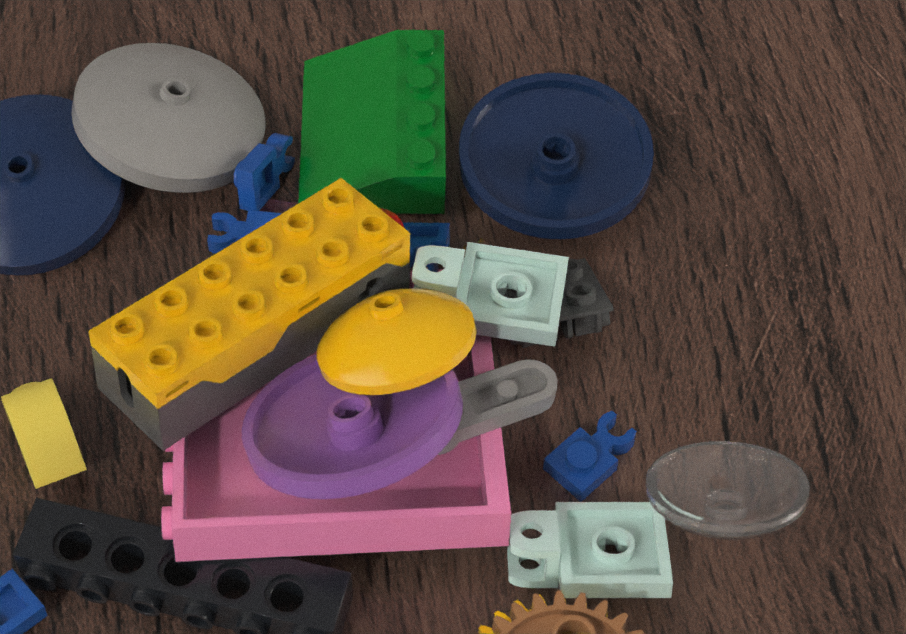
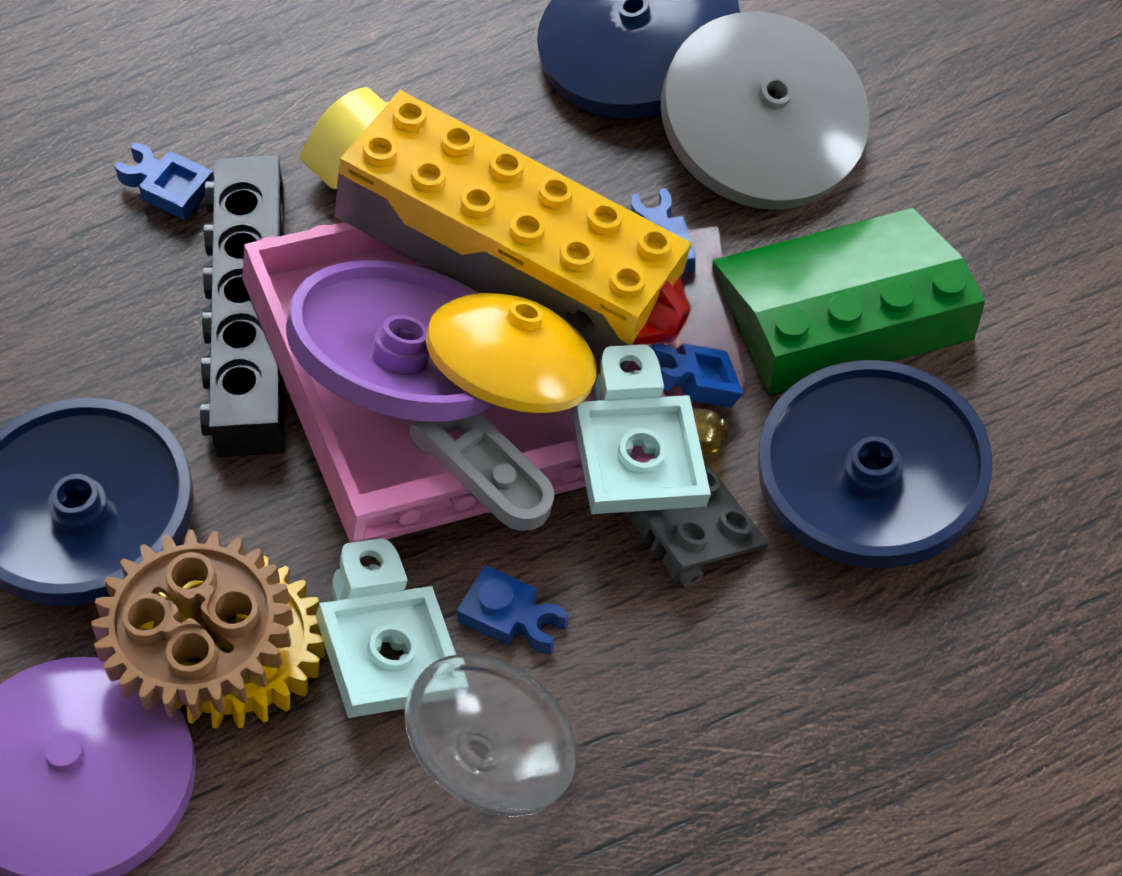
camera: 75 degrees right, 0 degrees up
(259, 171) = (733, 209): blue plate -> none

